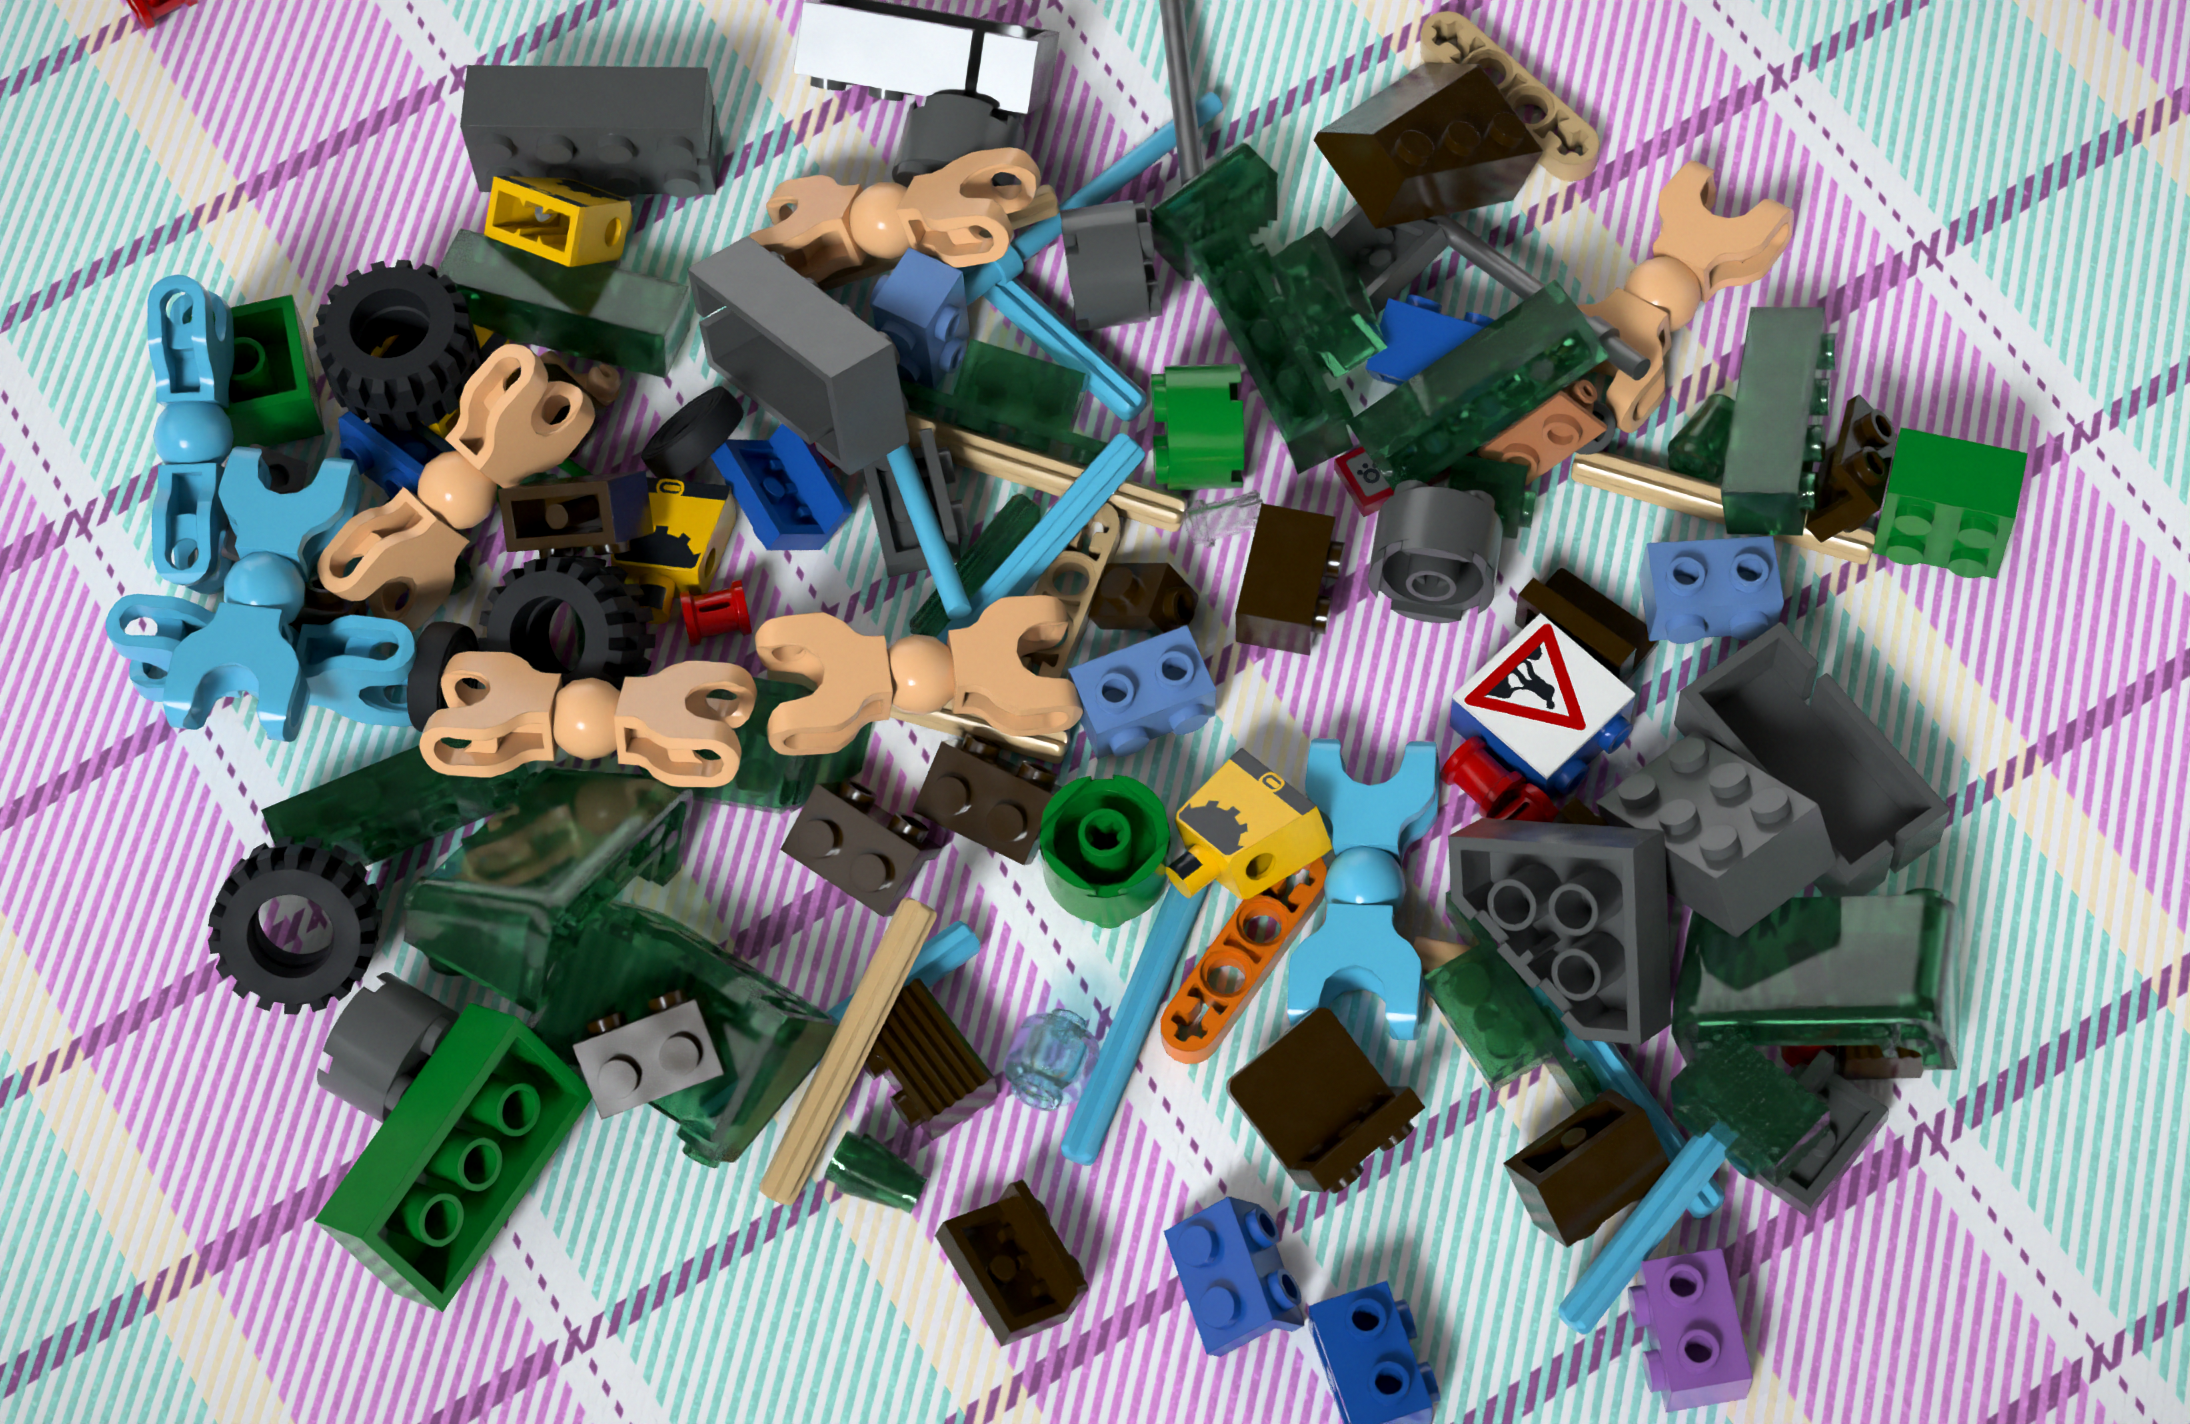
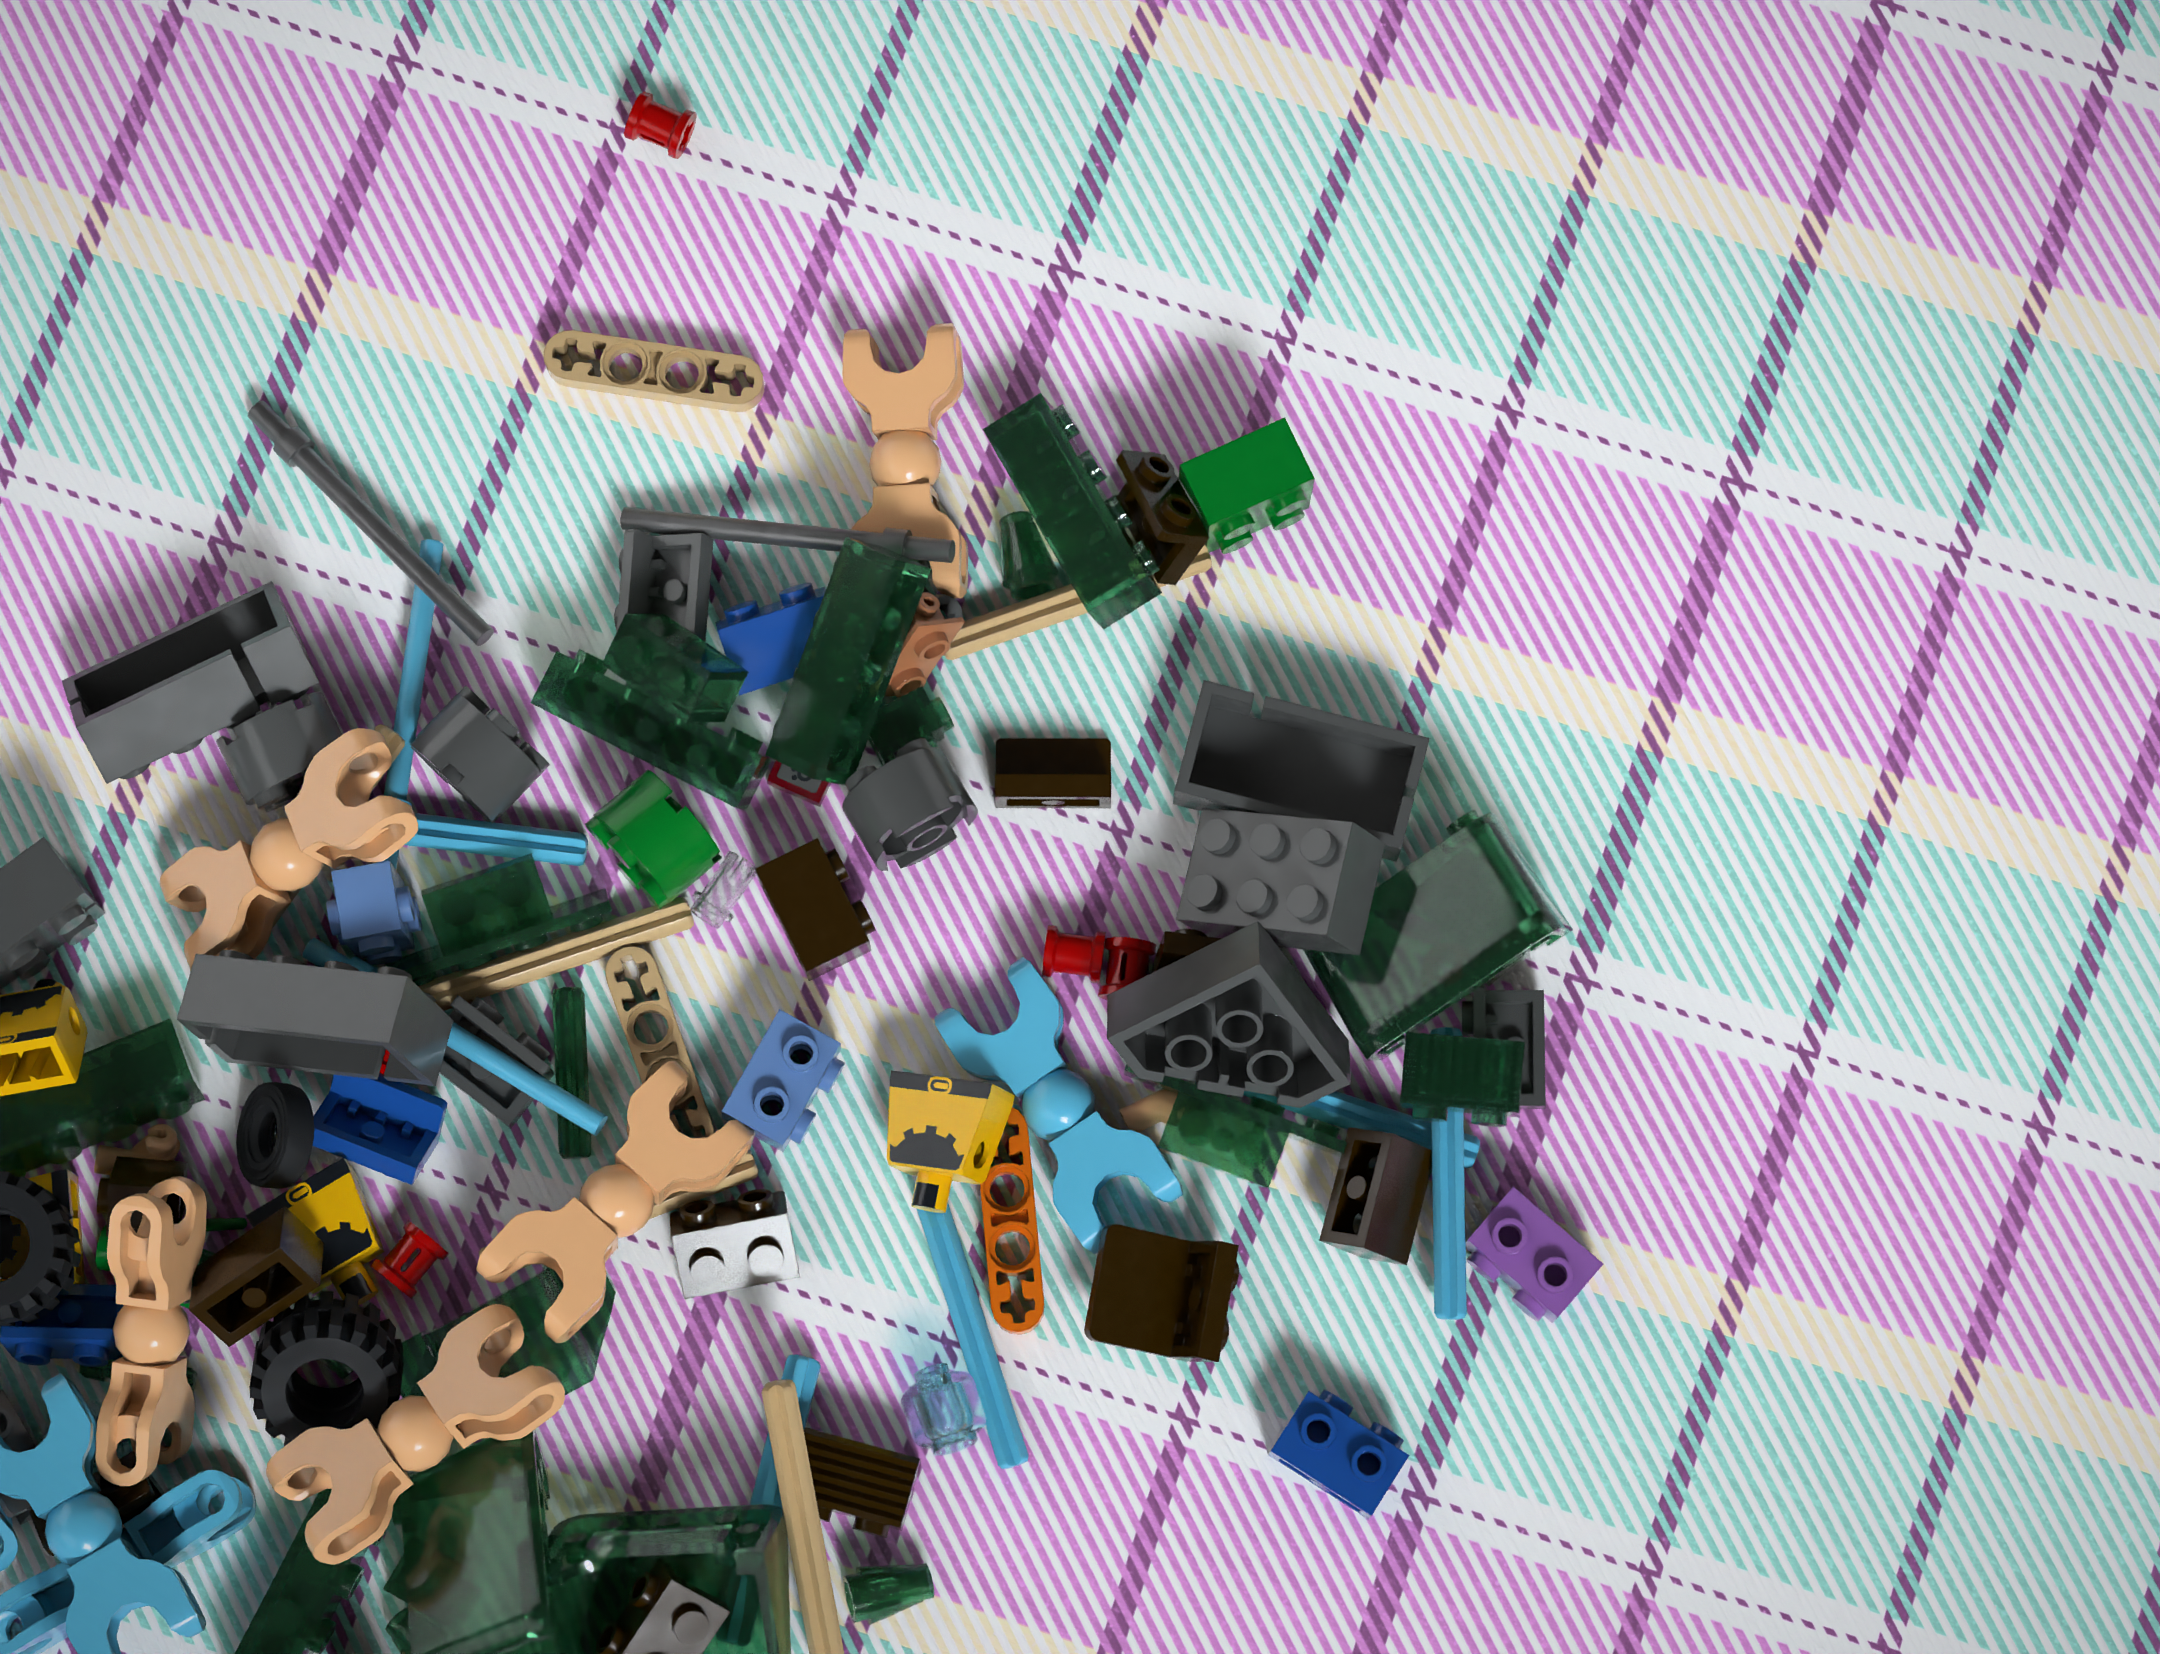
camera: 45 degrees left, 15 degrees up
(434, 650) = (245, 1460): black tyre -> none
(859, 844) = (669, 1354): dark brown bracket -> none
(1014, 1265) = (1039, 1579): dark brown bracket -> none
(1056, 528) = (613, 1024): medium azure axle -> none
(1133, 845) = (831, 1199): green brick -> none
(1143, 598) = (718, 1003): dark brown bracket -> none
(1226, 192) = (518, 645): clear green brick -> none
(1234, 1274) = (1194, 1462): blue bracket -> none
(1431, 146) = (634, 468): dark brown wedge -> none
(1544, 708) = (1078, 869): piece -> none
(1710, 589) = (1125, 683): medium blue brick -> none

